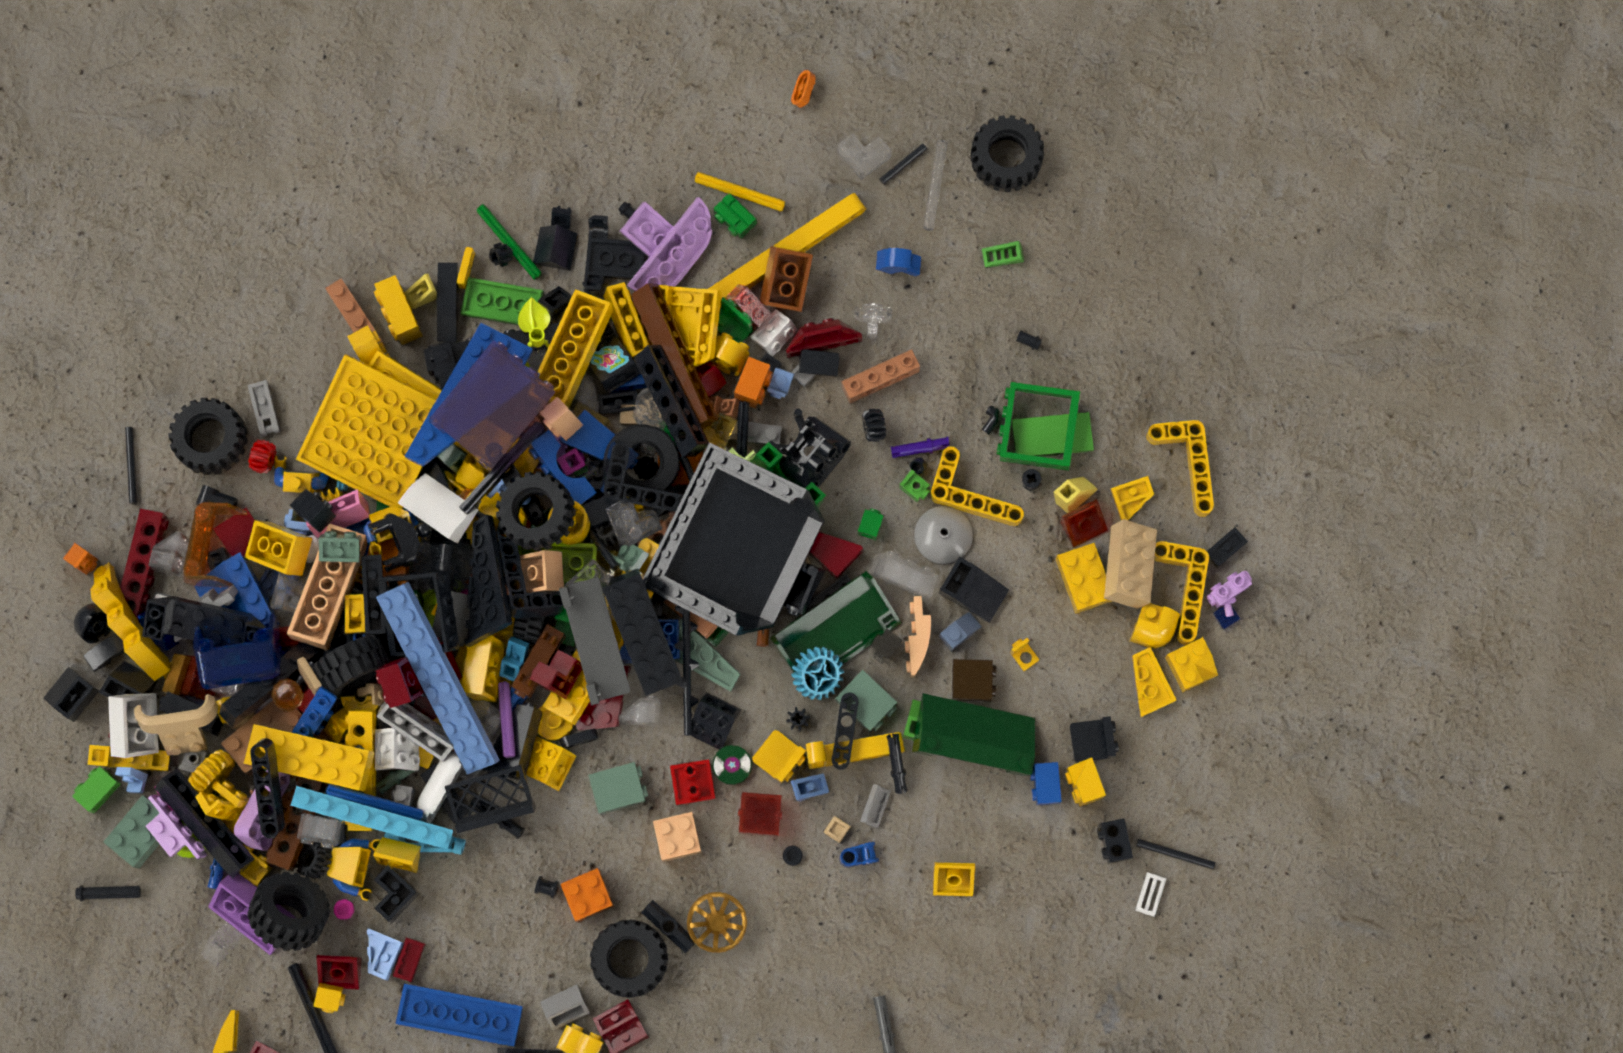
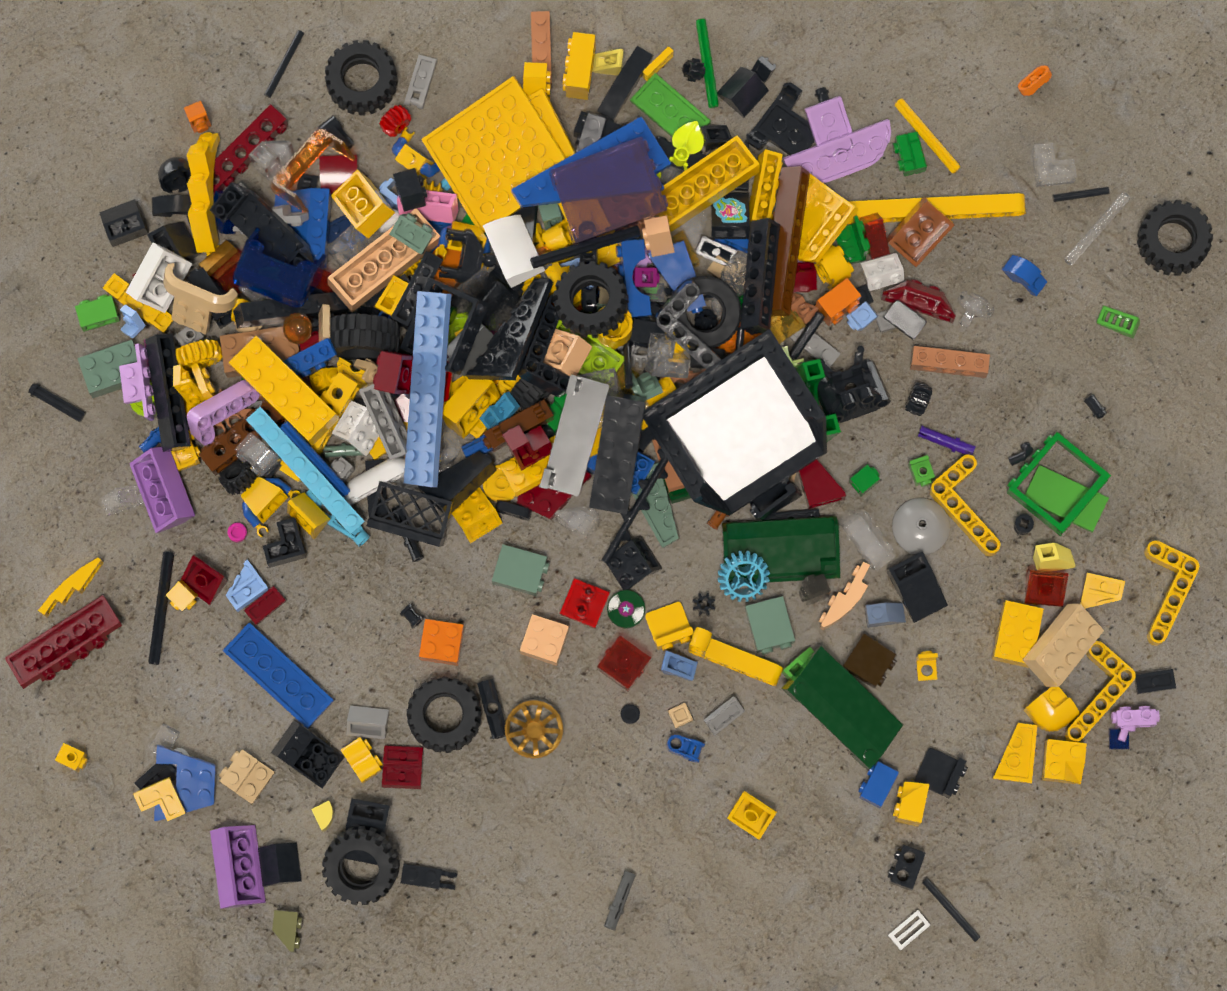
camera: 30 degrees right, 0 degrees up
(269, 779) = (242, 388): black beam -> none
(283, 930) = (177, 515): black tyre -> none
(506, 719) = (462, 458): medium lavender axle -> none
(845, 731) = (738, 639): black beam -> none
(898, 771) = (760, 697): black pin -> none
(913, 465) = (931, 454): black hinge -> none

